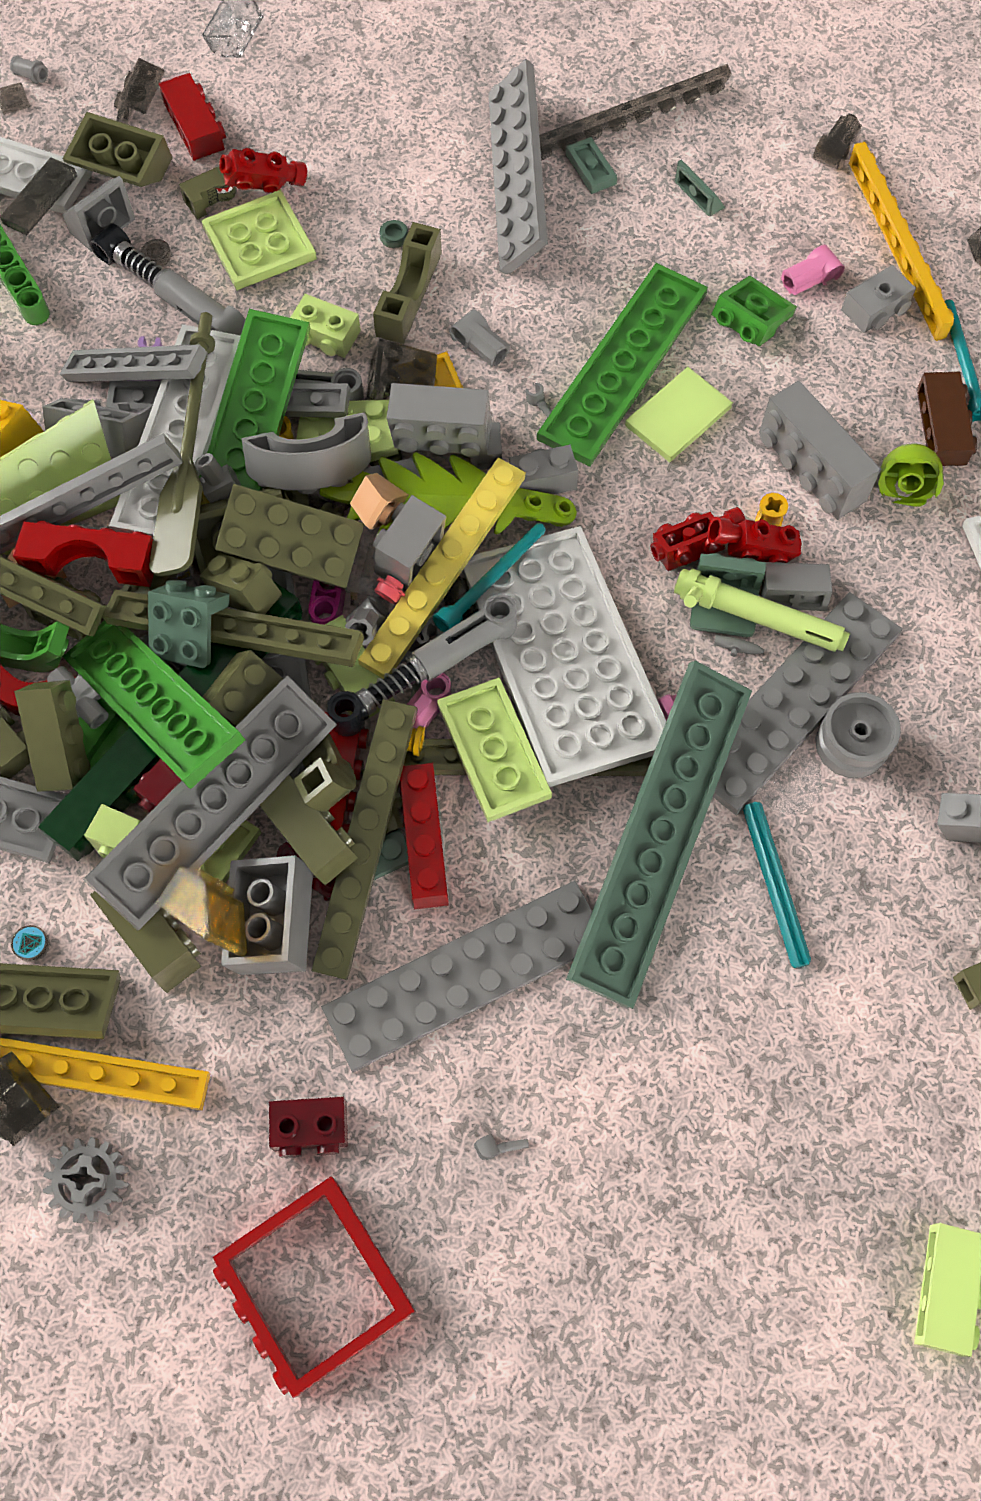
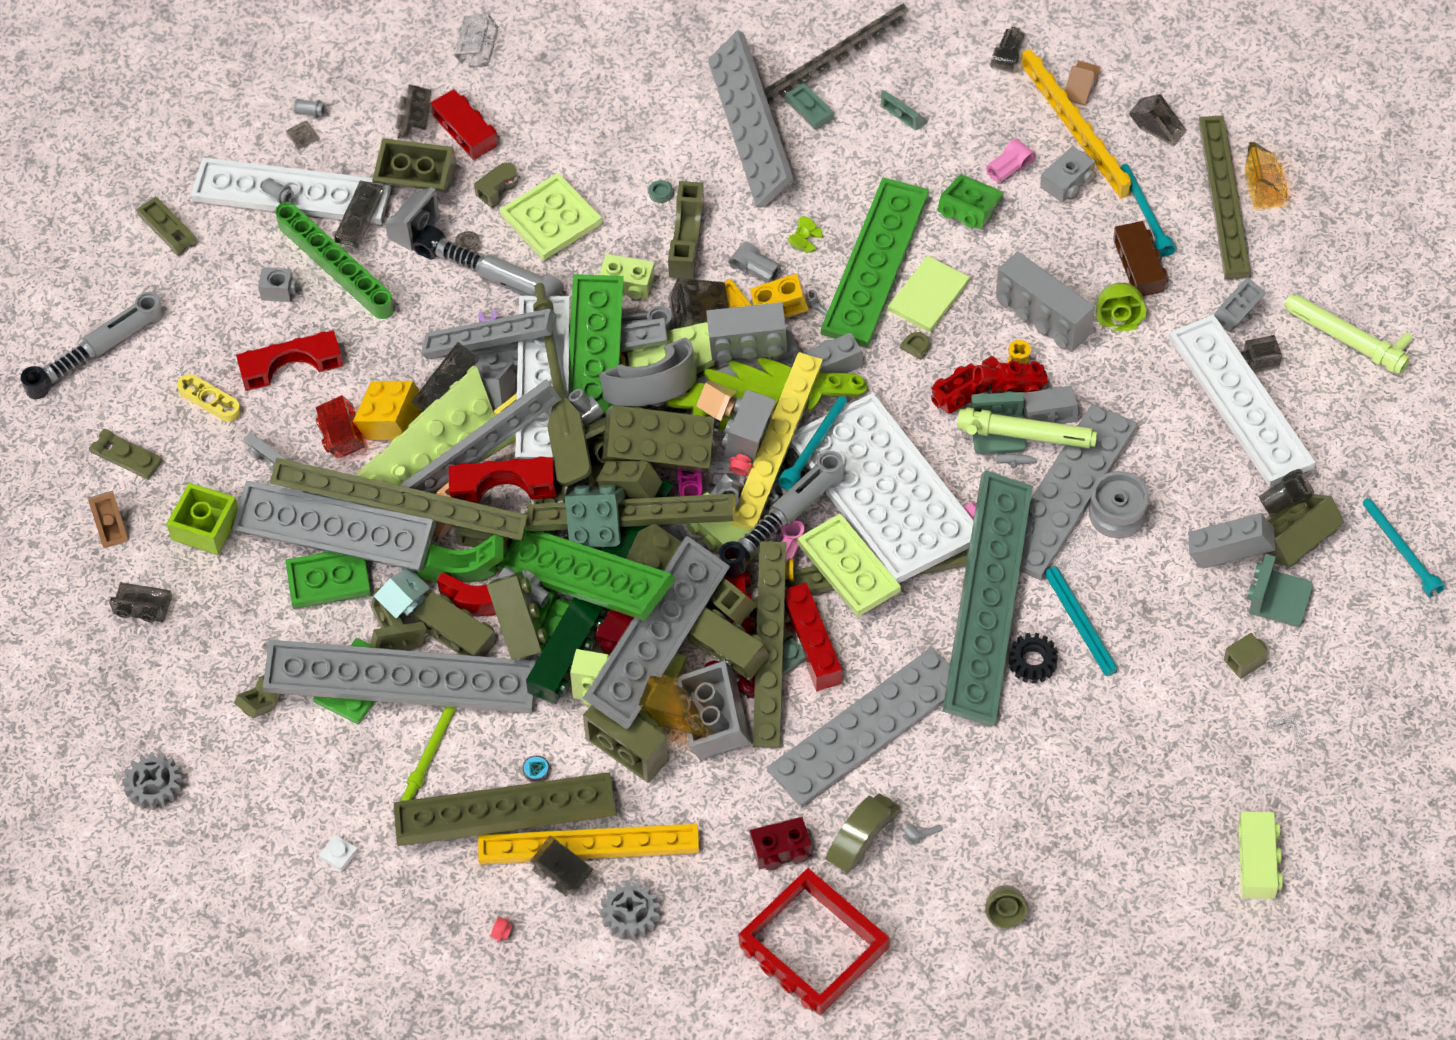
camera: 10 degrees left, 10 degrees down
(65, 400) = (448, 372): none -> clear smoke plate
(260, 171) = (540, 160): red brick -> none
(419, 1131) = (860, 831): none -> olive arch
(505, 381) = (785, 290): none -> yellow brick
(551, 307) = (805, 228): none -> lime piece
(586, 1291) = (1006, 907): none -> olive helmet
(648, 474) = (916, 344): none -> olive tile
(702, 904) = (1034, 644): none -> black tyre
(917, 193) = (1081, 82): none -> medium nougat slope

